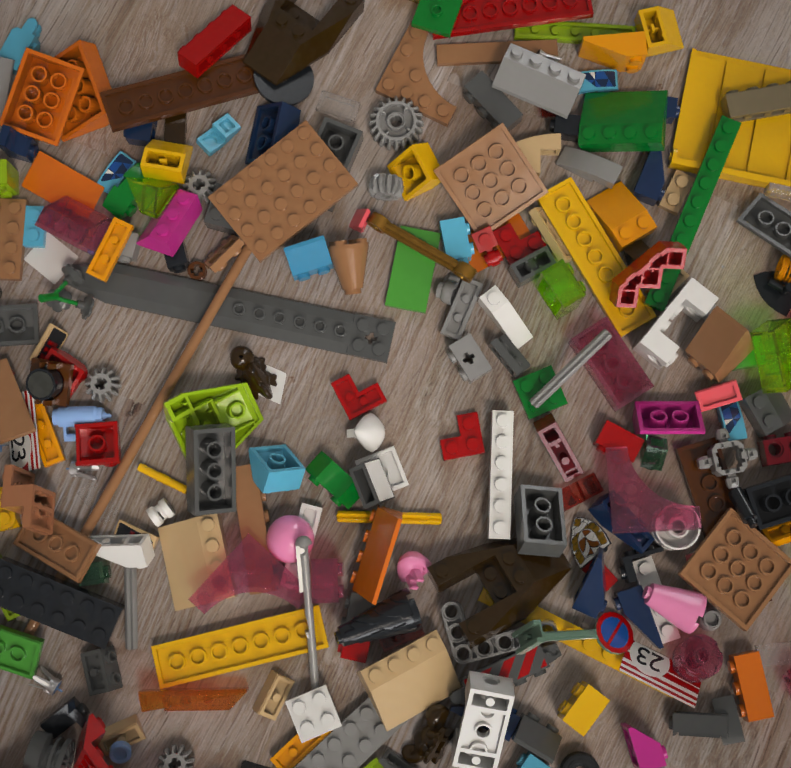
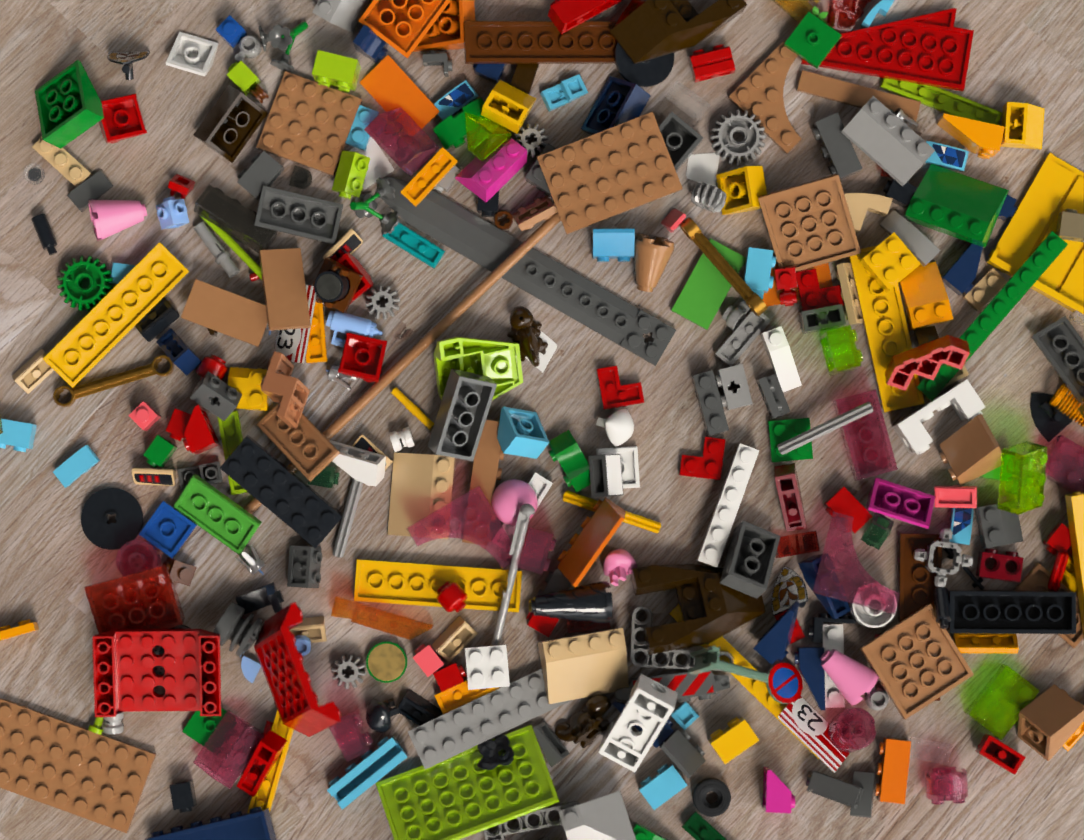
camera: 20 degrees right, 5 degrees up
(35, 272) = (350, 174): none -> lime brick
(87, 140) = (434, 58): none -> dark grey bracket
(118, 320) = (415, 245): none -> teal tile
(212, 740) = (386, 662): none -> pearl gold tile
(252, 724) = (427, 659): none -> coral brick
(256, 654) = (451, 597): none -> red head
(279, 735) = (450, 676): none -> red brick
(349, 64) = (711, 63): none -> red brick
(372, 162) = (703, 168): none -> white sticker
(451, 381) = (710, 403): none -> dark grey brick
(526, 697) = (684, 715): none -> medium azure tile
(579, 192) = (890, 262): none -> yellow brick
(766, 472) = (977, 582): none -> black piece

